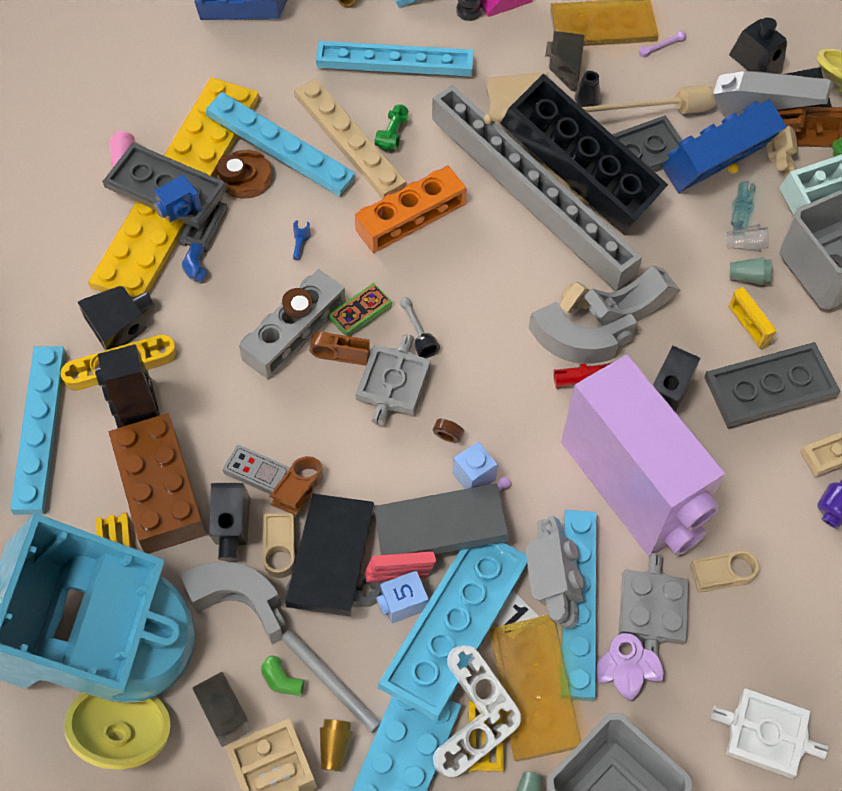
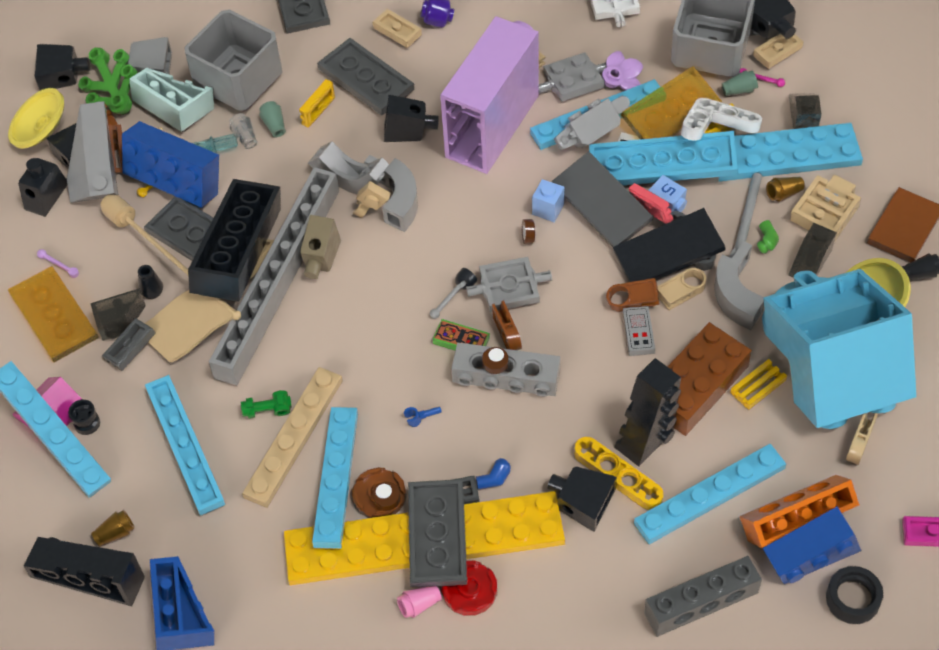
camera: 115 degrees left, 5 degrees down
(101, 202) = (476, 595): none -> red tile
(176, 199) = (457, 494): blue brick -> none
(229, 506) = (688, 315): black torso -> none
(410, 208) = (339, 337): orange brick -> none
(525, 57) = (131, 345): none -> dark grey tile
(543, 232) = (319, 245): none -> dark tan torso
(572, 376) = (427, 177): red pin -> none

